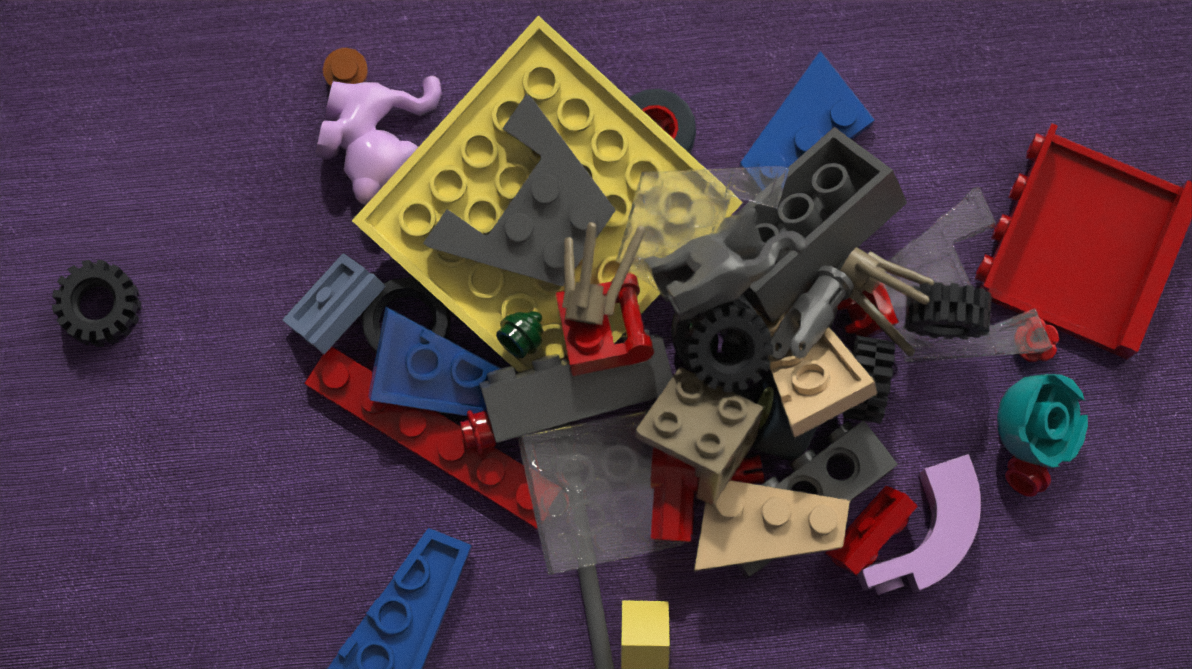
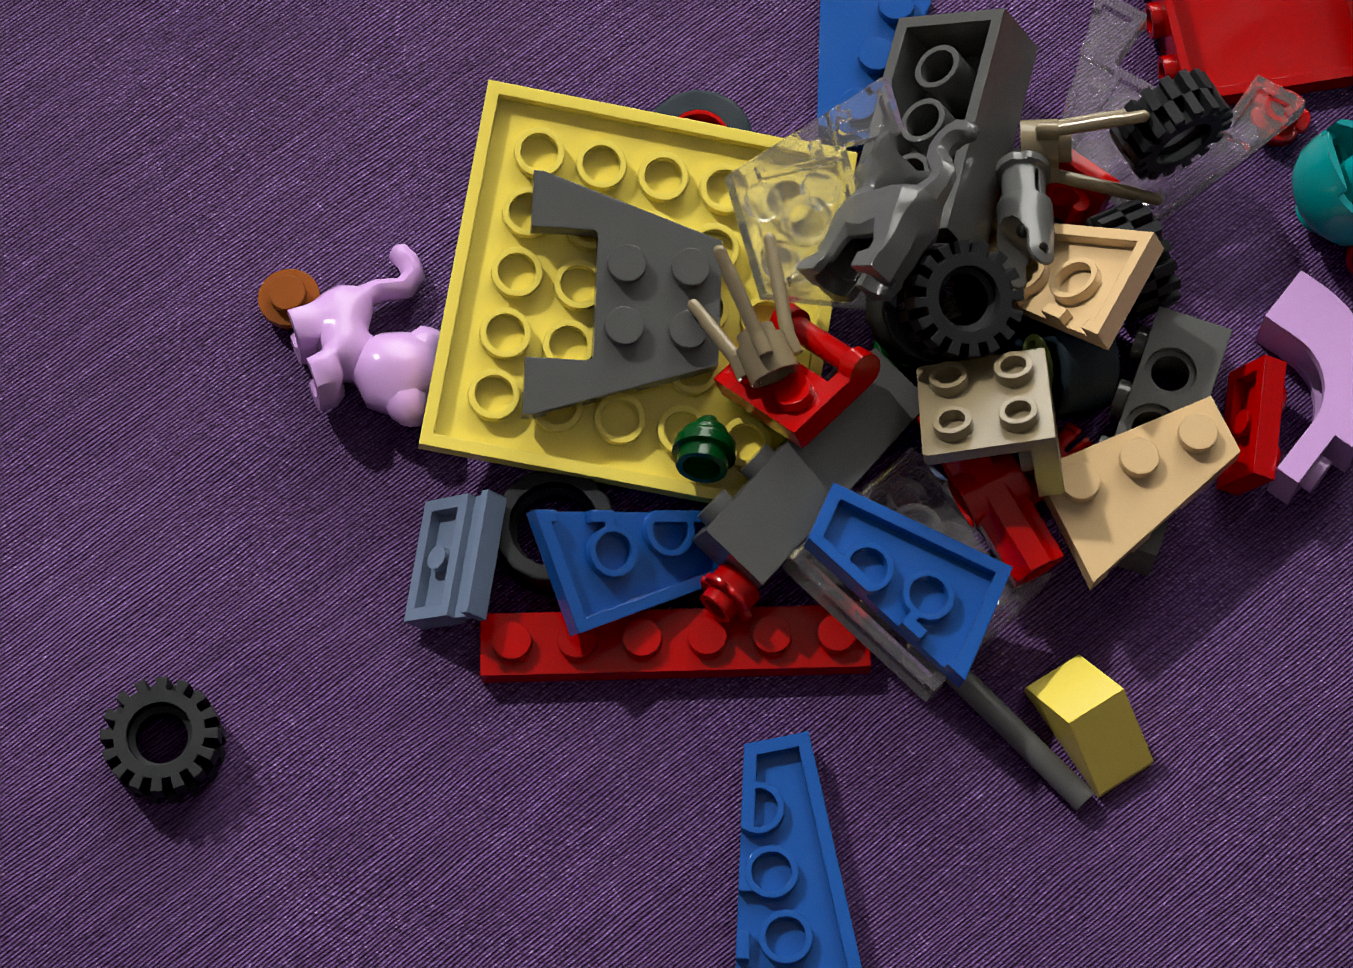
camera: 30 degrees left, 10 degrees down
(586, 495) = (911, 576): none -> blue wing

